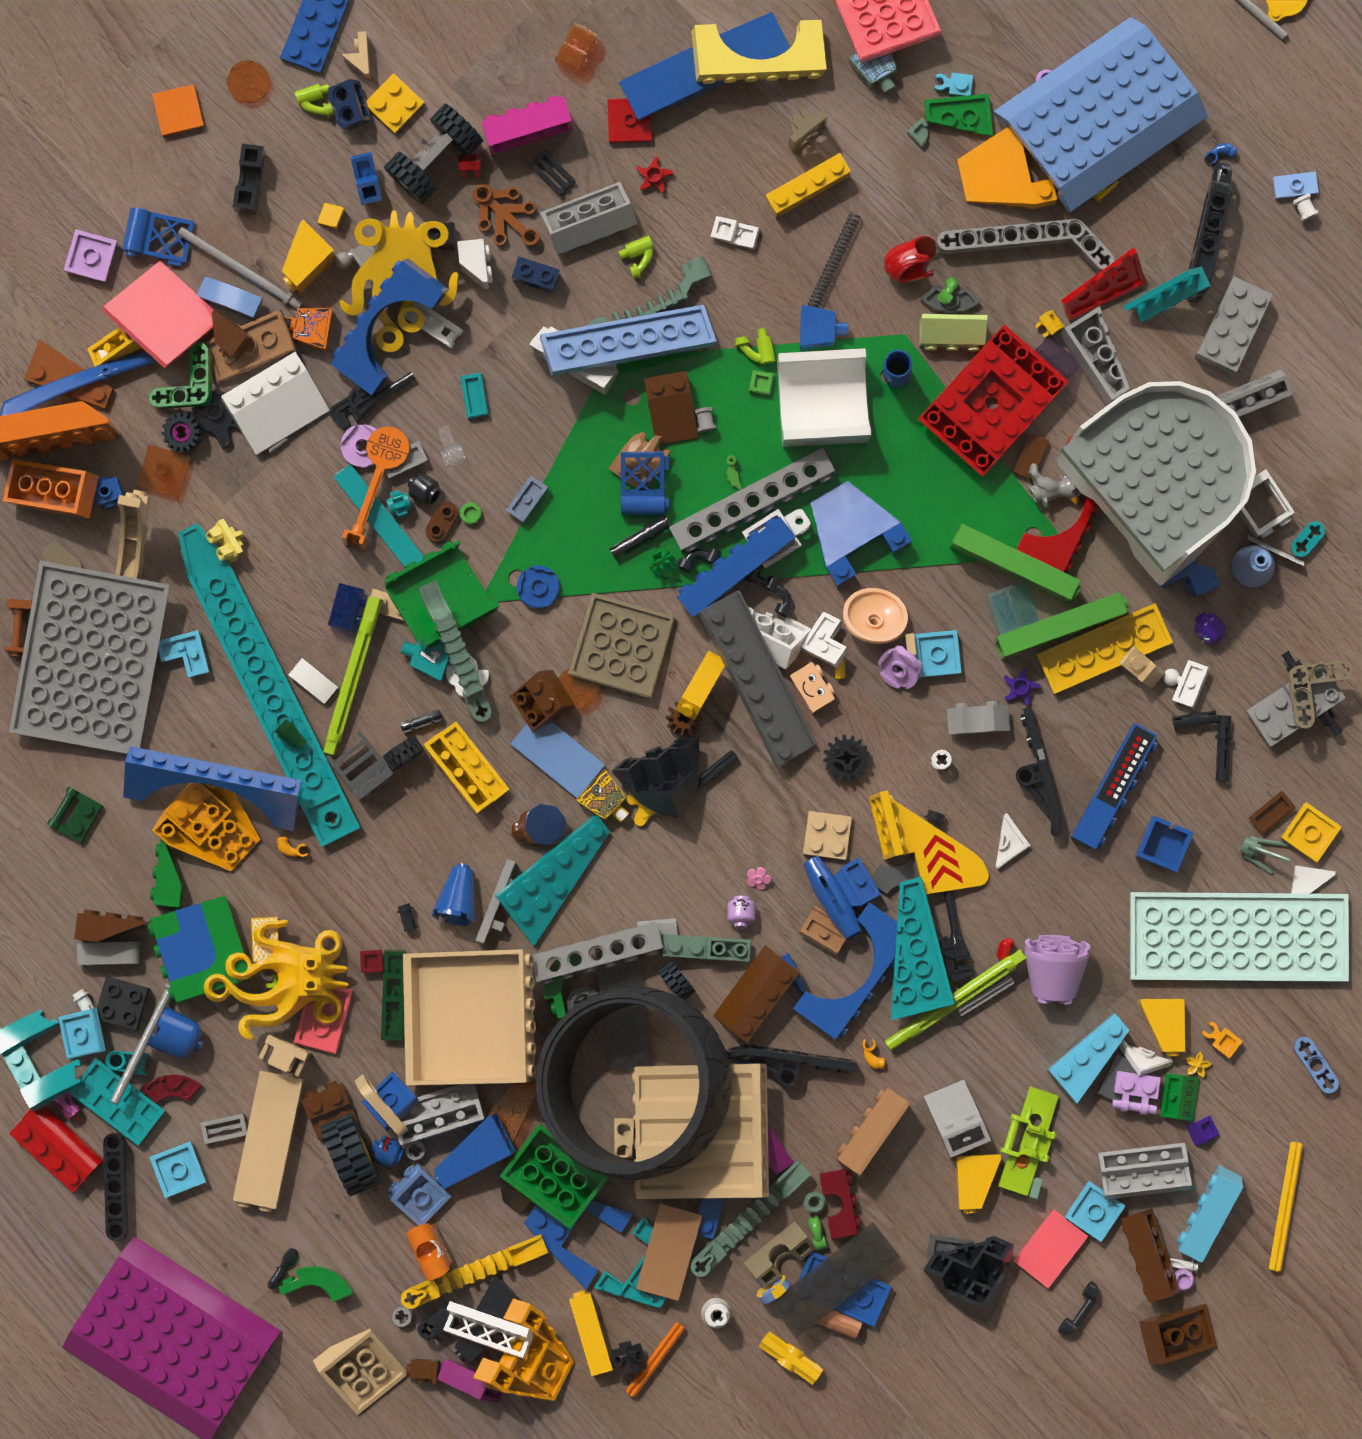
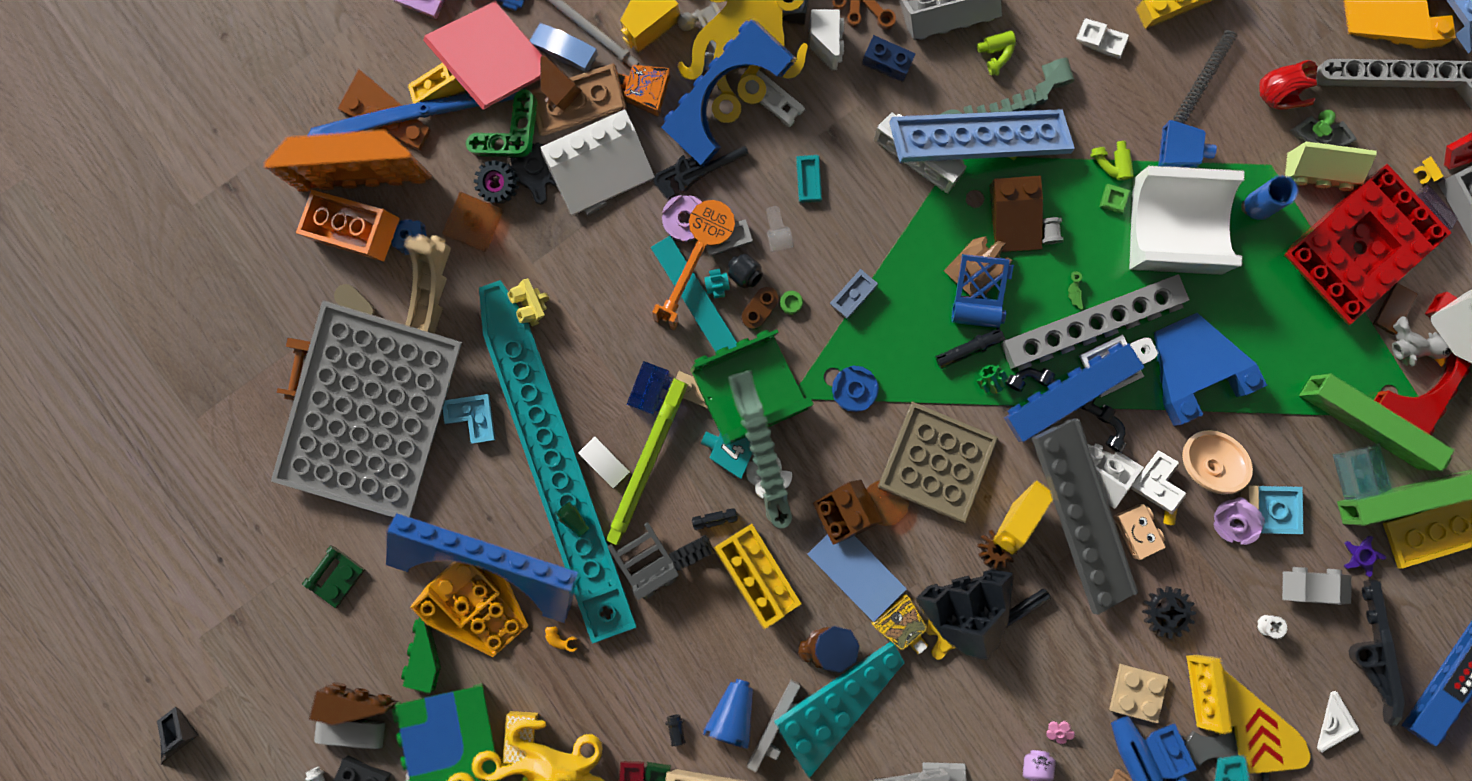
camera: 15 degrees right, 0 degrees up
(934, 817) = (1258, 688): black plate -> none

